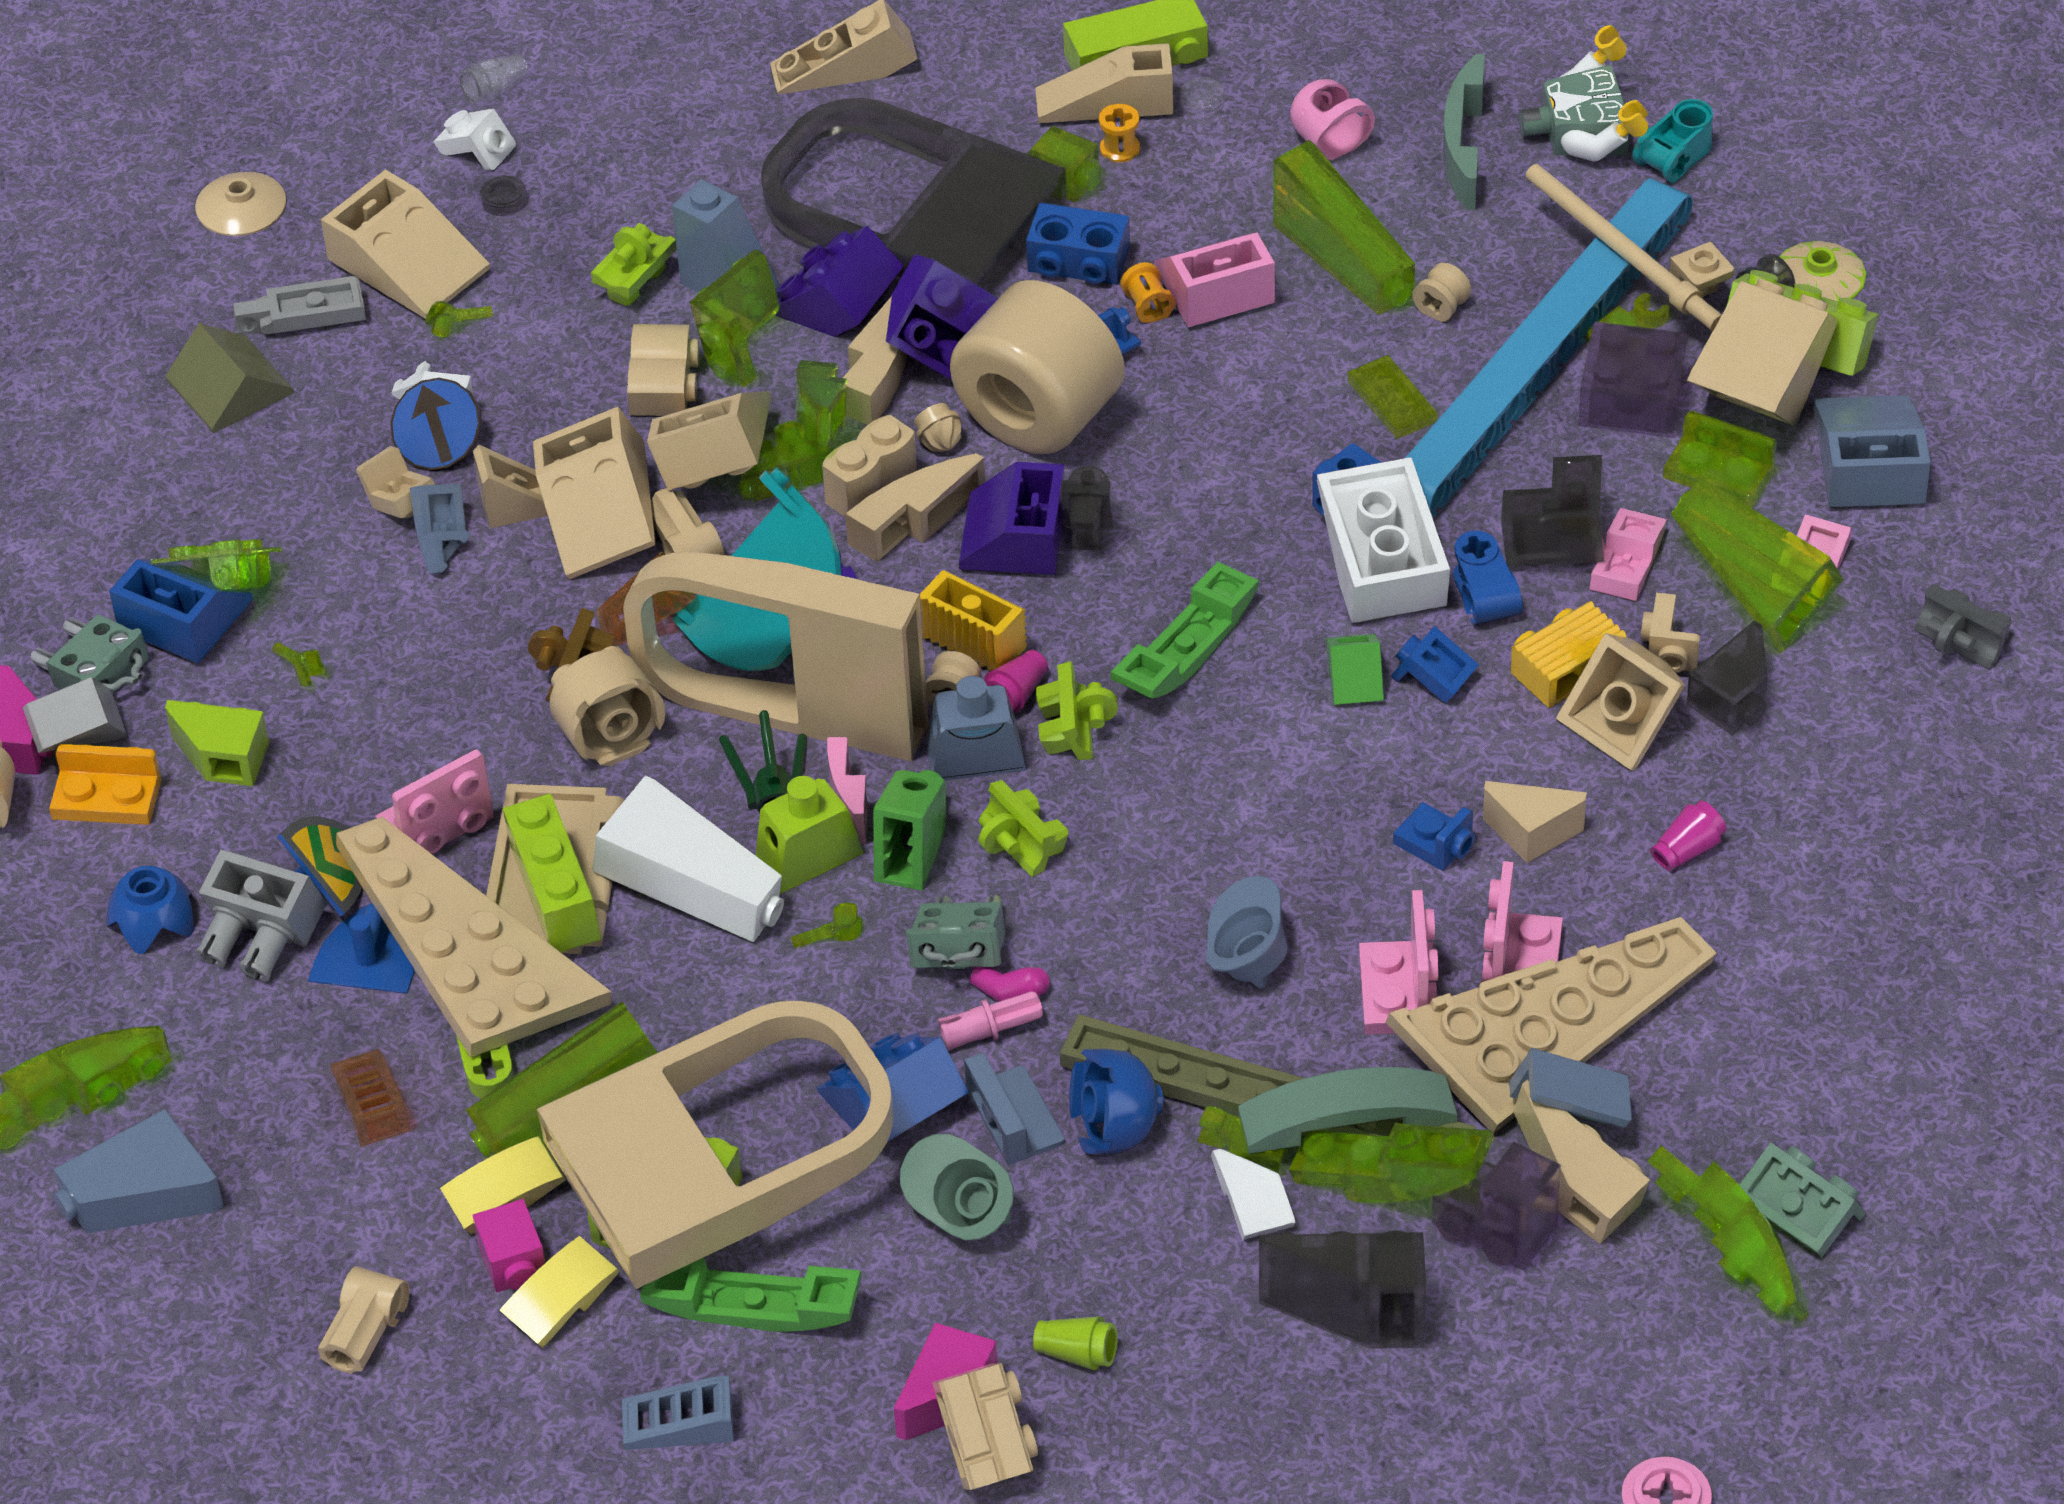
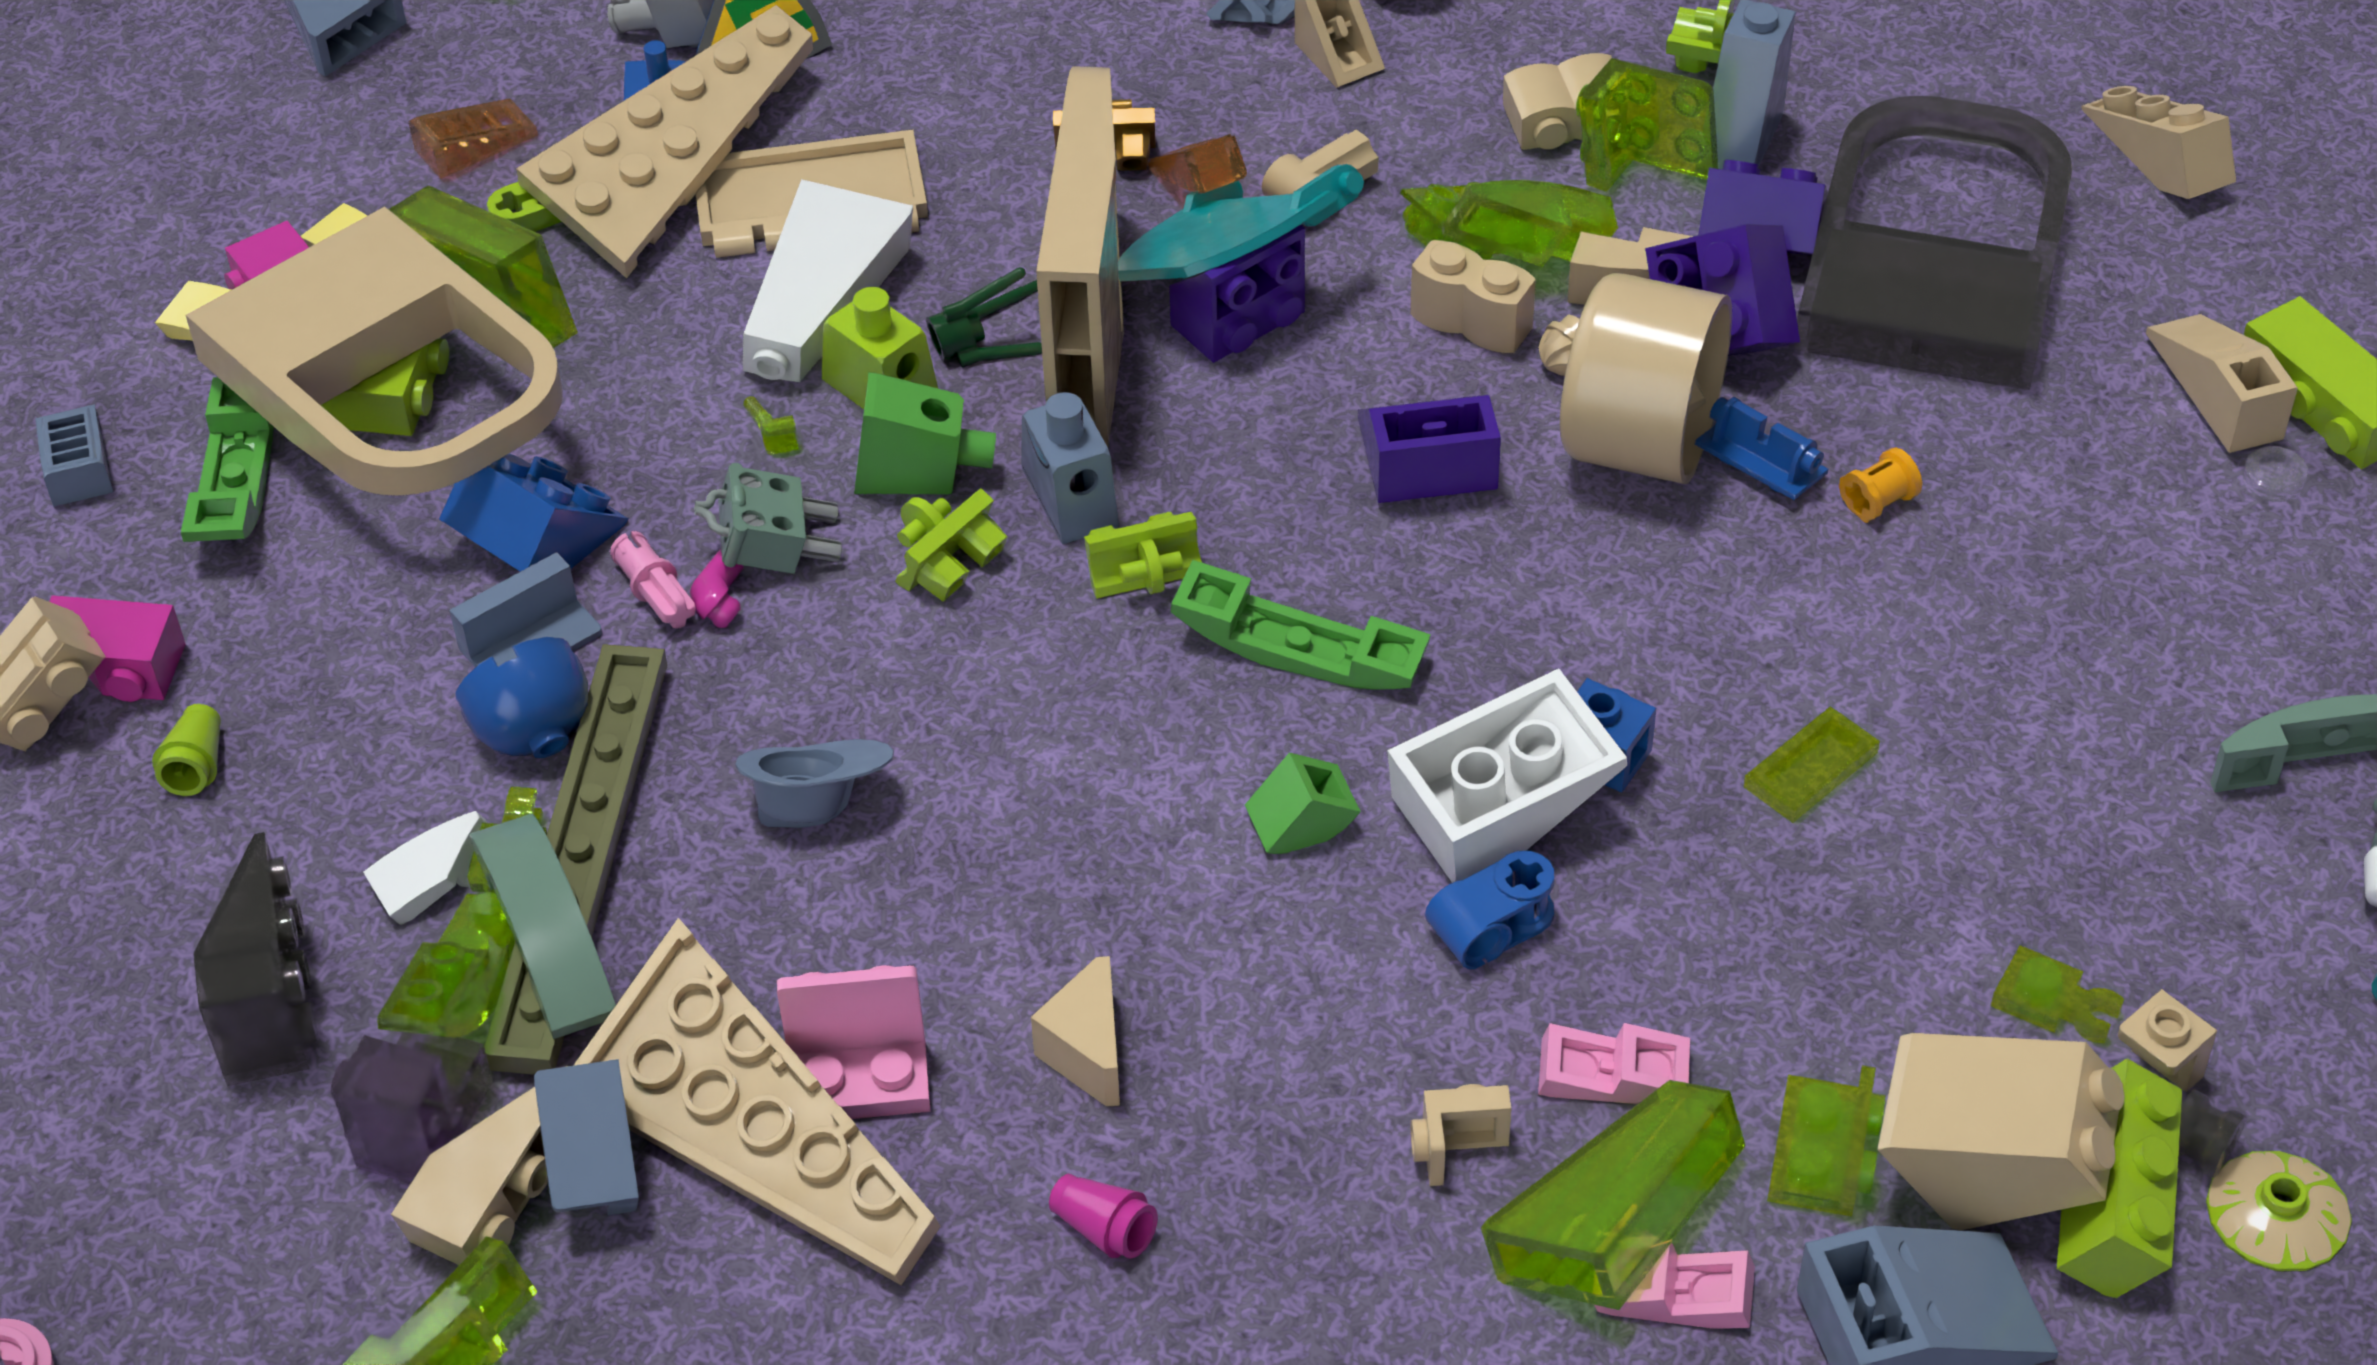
camera: 75 degrees right, 0 degrees up
(366, 1308) = (189, 193): tan piece -> none
(443, 803) = (848, 78): bright pink bracket -> none
(551, 873) = (759, 172): lime brick -> none
(595, 491) = (1340, 81): tan slope -> none
(606, 706) = (1009, 160): tan brick -> none
(709, 439) = (1436, 139): tan slope -> none
(848, 787) = (980, 375): bright pink slope -> none
(913, 505) = (1428, 348): tan slope -> none
(948, 671) = (1159, 439): tan wheel -> none
(957, 1186) = (378, 601): sand green piece -> none
(972, 621) = (1245, 428): yellow brick -> none
(1019, 677) = (1178, 490): dark pink cone -> none
(1073, 153) = (2068, 361): clear neon green brick -> none
(1078, 244) = (1931, 401): blue brick -> none
(1087, 506) = (1458, 491): clear smoke hips -> none
(1112, 134) = (2151, 391): light orange bush -> none
(1220, 279) = (1929, 538): bright pink slope -> none
(1330, 118) = (2277, 590): bright pink helmet -> none
(1338, 229) = (2062, 634): clear neon green slope -> none
(1399, 971) = (785, 937): bright pink bracket -> none
(1435, 663) = (1329, 885): blue bracket -> none
(1436, 836) = (1043, 944): blue bracket -> none
(1442, 292) = (2014, 771): tan wheel -> none
(1541, 343) = (1977, 898): dark azure beam -> none
(1556, 655) = (1391, 1021): yellow brick -> none
(1558, 521) = (1626, 968): clear smoke brick -> none
(1621, 699) = (1332, 1089): tan slope -> none
(1633, 379) = (1926, 984): clear purple brick -> none
(1682, 294) = (2099, 1017): tan bar -> none
(1732, 682) = (1400, 1219): clear smoke slope -> none

